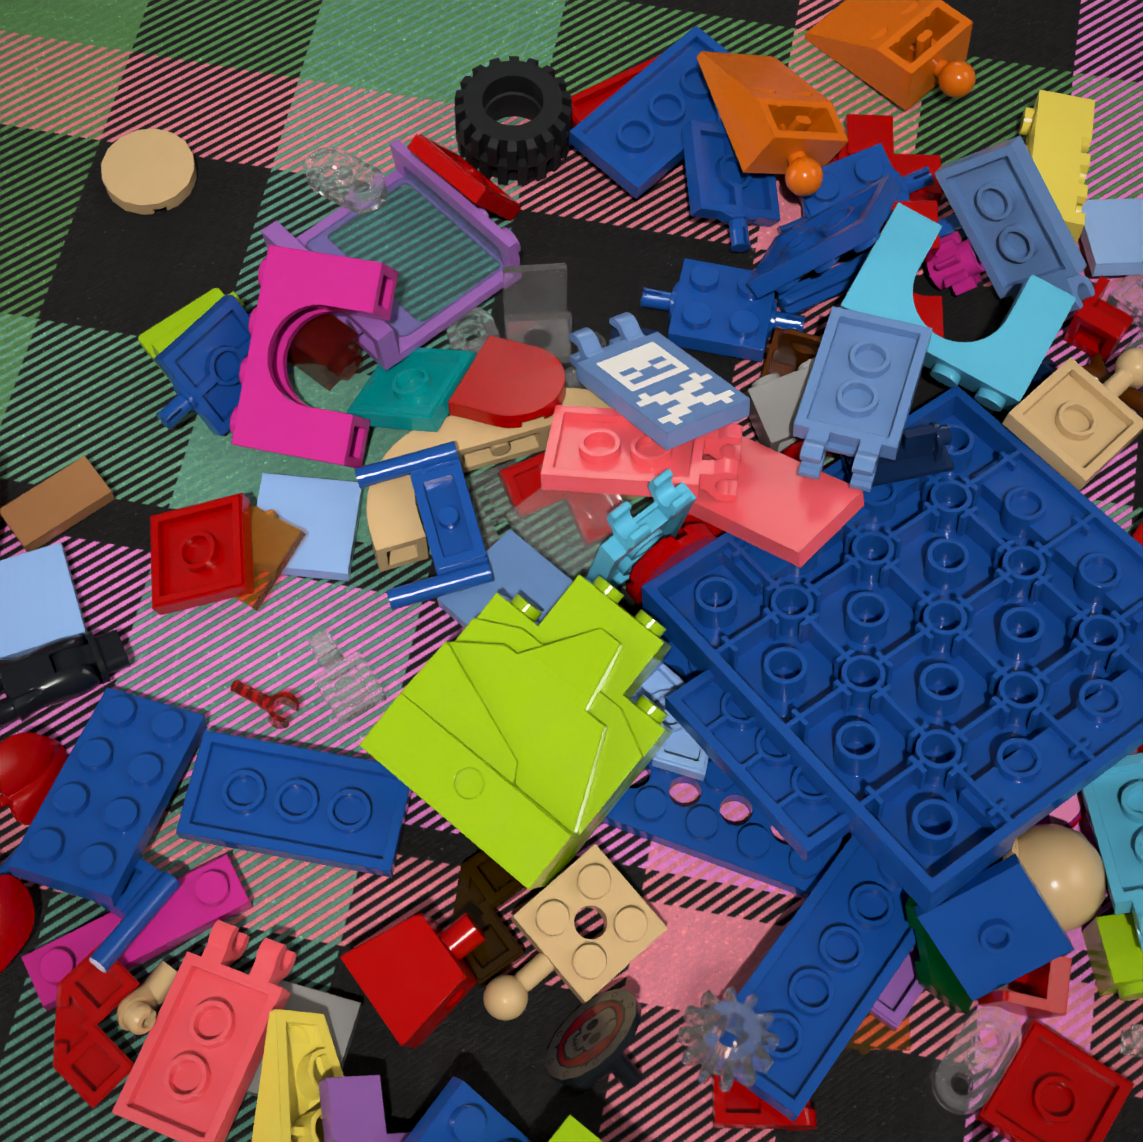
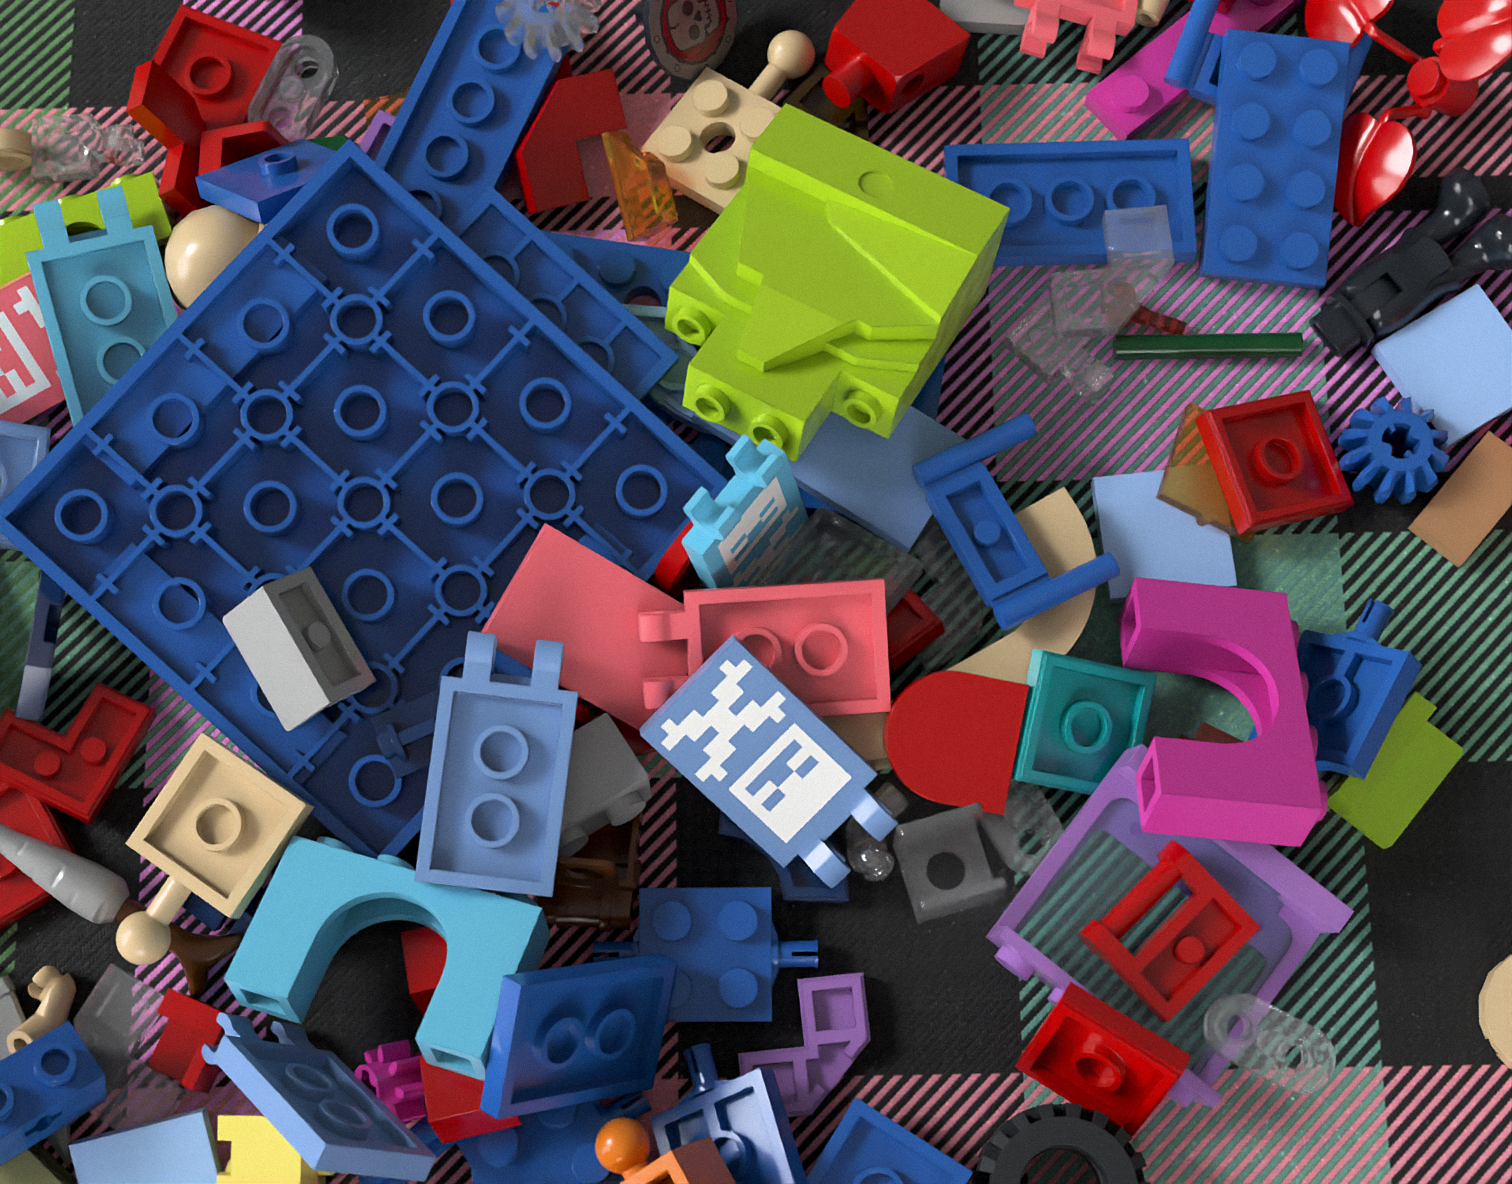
camera: 175 degrees right, 10 degrees up
(102, 526) = (1413, 443): none -> blue gear
(220, 665) = (1207, 346): none -> dark green bar
(257, 725) = (1106, 298): none -> clear tile
(393, 231) = (1188, 943): none -> red plate
(642, 248) = (833, 1036): none -> medium lavender tile
(669, 891) = (640, 187): none -> clear orange tile
(745, 931) = (548, 153): none -> red tile
(1003, 514) = (297, 648): none -> light grey panel
(1089, 1034) = (176, 123): none -> red tile

